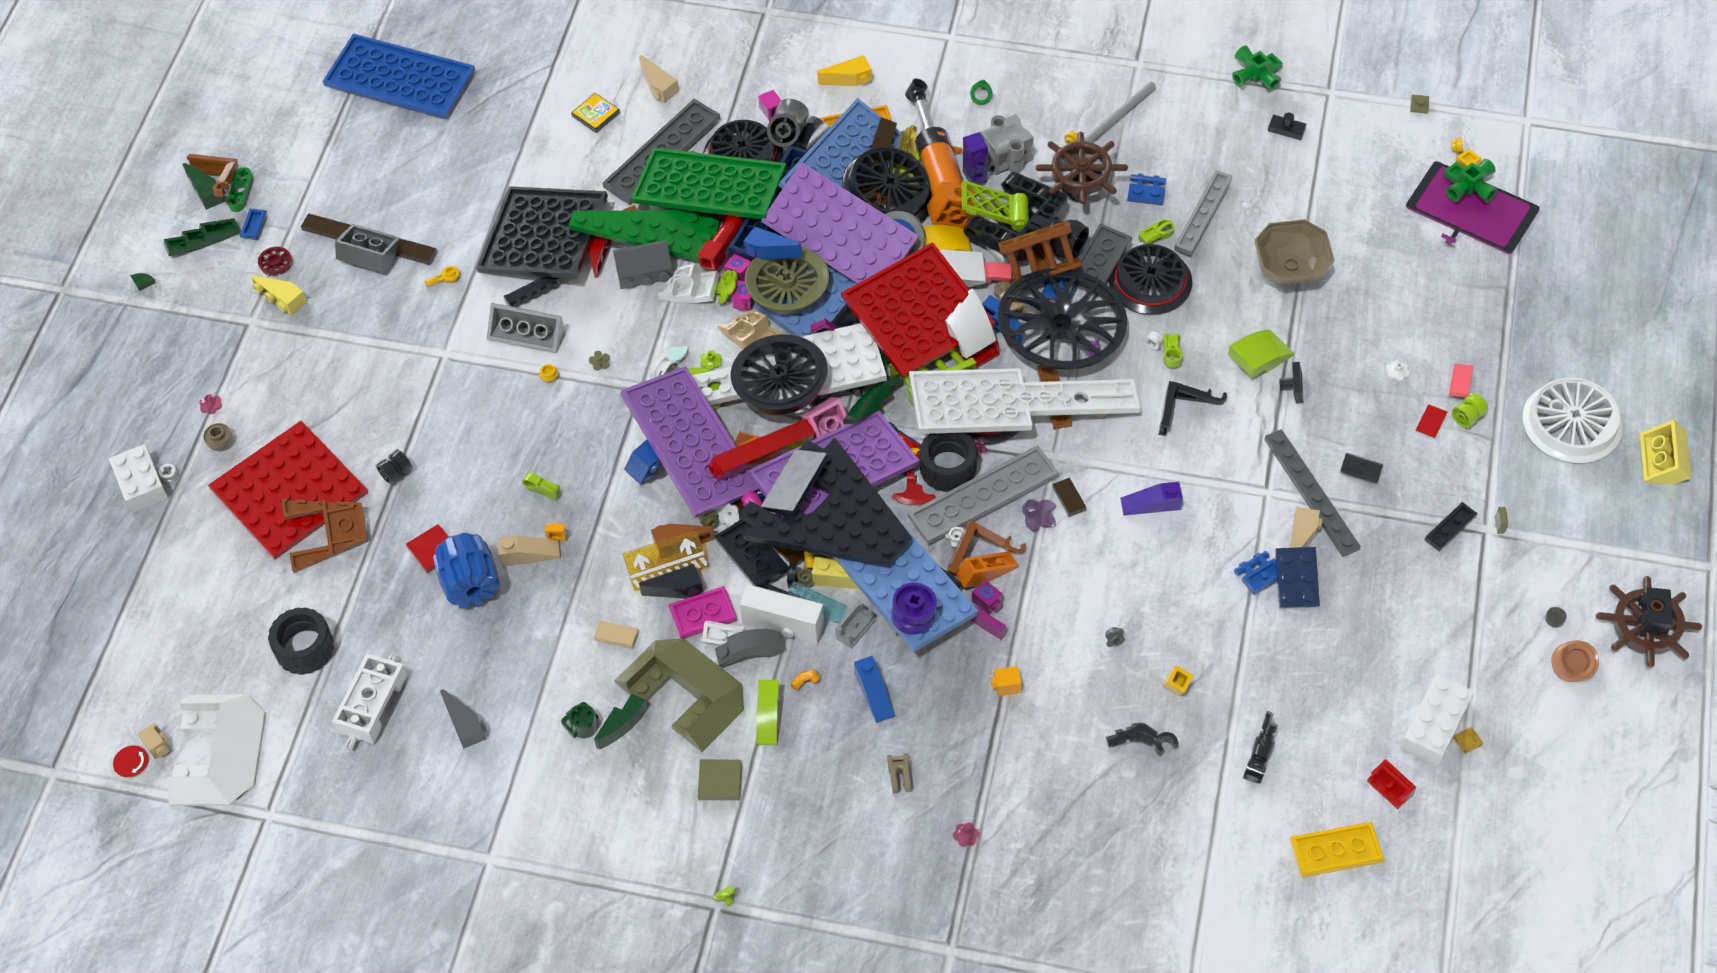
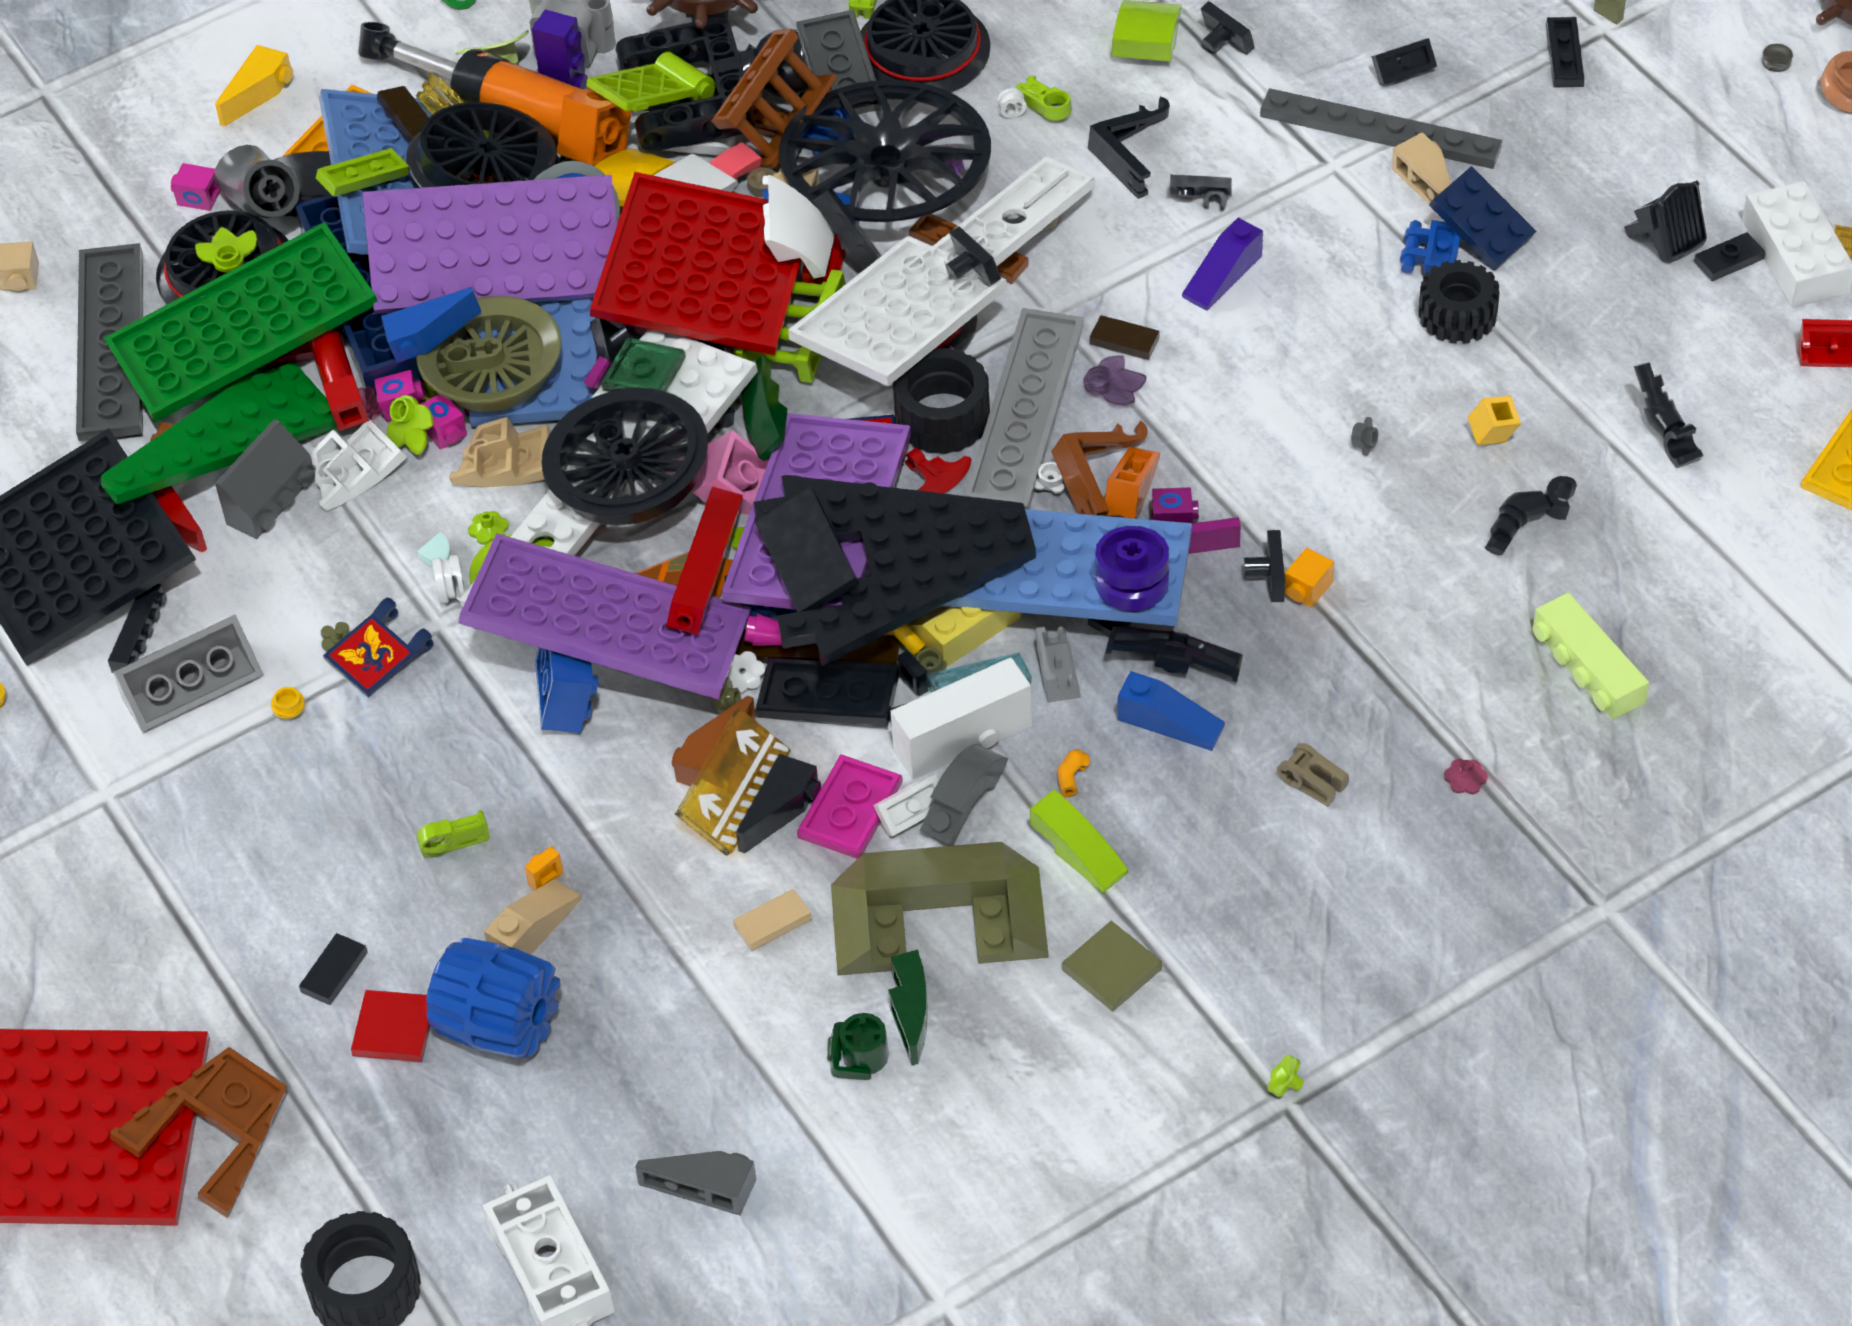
camera: 45 degrees left, 5 degrees down
(396, 465) = (215, 972): black wheel -> none
(439, 503) = (333, 969): none -> black tile
(604, 377) = (374, 652): none -> flag
(742, 145) = (227, 250): none -> lime plate
(823, 151) = (362, 172): none -> lime plate
(837, 340) = (643, 366): none -> clear green tile
(910, 664) = (1175, 650): none -> black plate
(956, 133) = (505, 50): none -> yellowish green hat
(997, 660) = (1270, 566): none -> black tile
(999, 344) = (847, 228): none -> black piece
(1024, 403) = (970, 257): none -> black tile
(1084, 830) = (1590, 656): none -> yellowish green brick
(1182, 447) = (1187, 186): none -> black plate
(1235, 595) = (1458, 301): none -> black tyre
(1385, 657) = (1672, 221): none -> black piece
(1399, 697) = (1729, 256): none -> black plate

